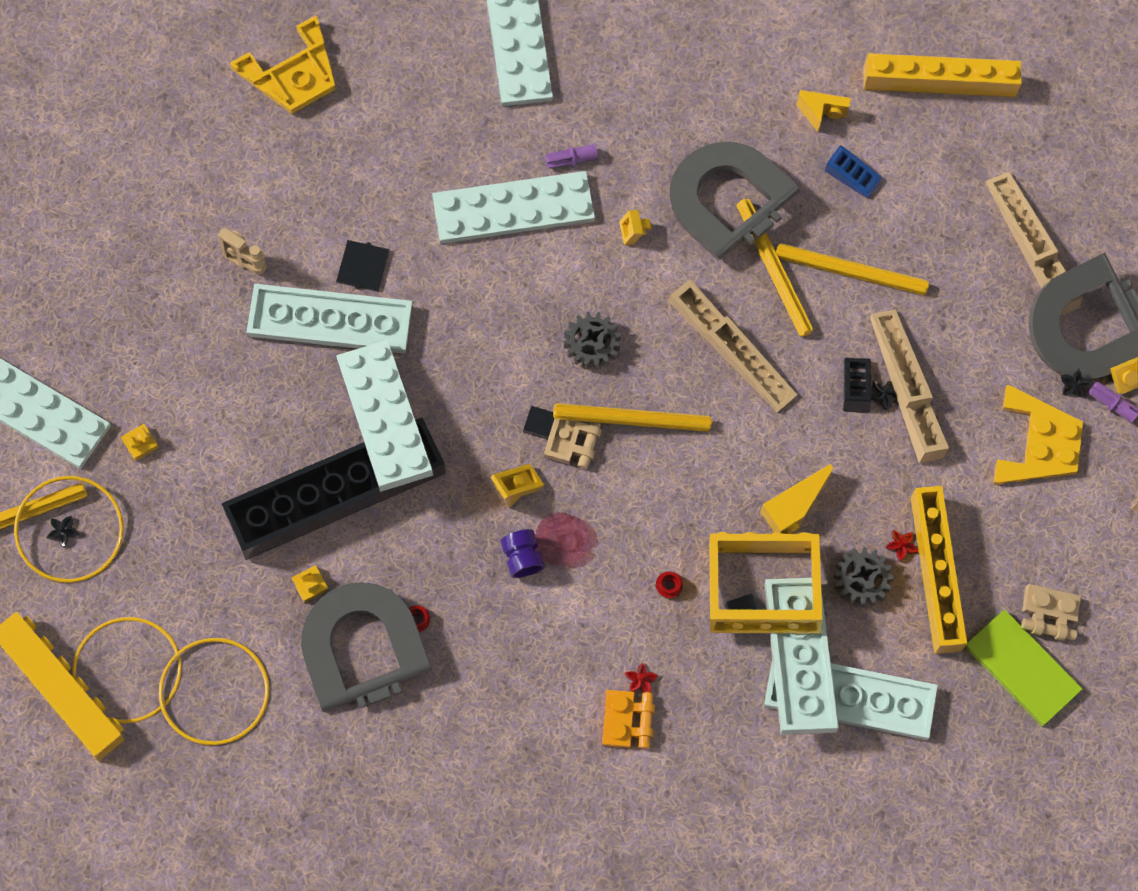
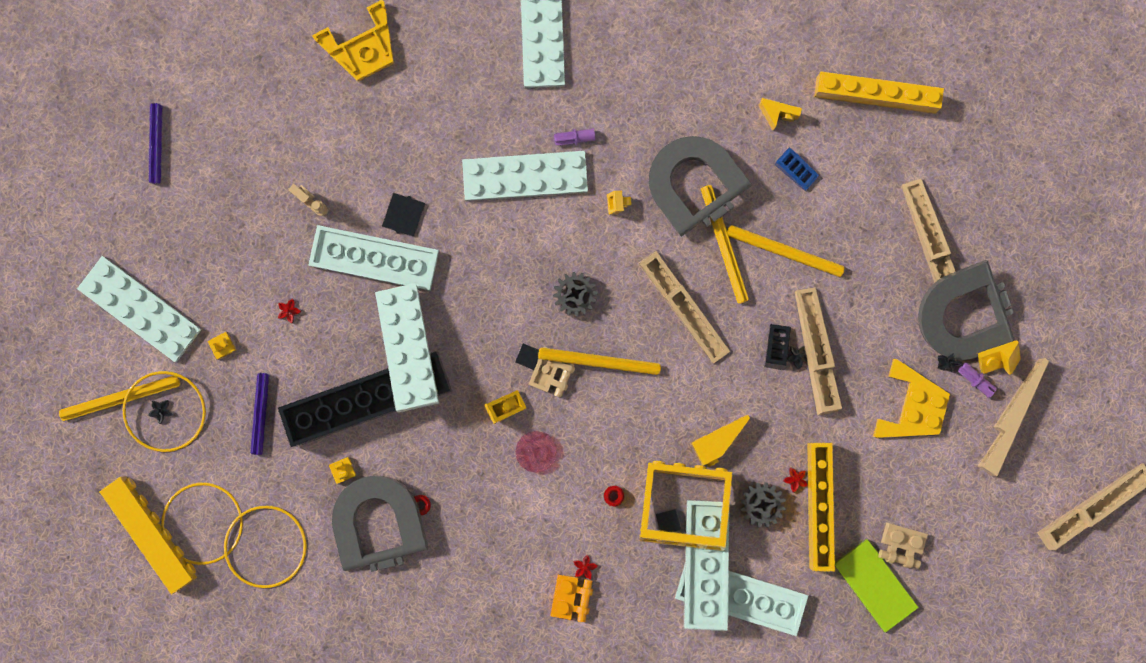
camera: 15 degrees right, 15 degrees up
(37, 205) = (155, 143): none -> dark purple axle
(195, 522) = (259, 414): none -> dark purple axle
(223, 393) = (288, 310): none -> red plant
(523, 557) = (504, 463): dark purple wheel -> none

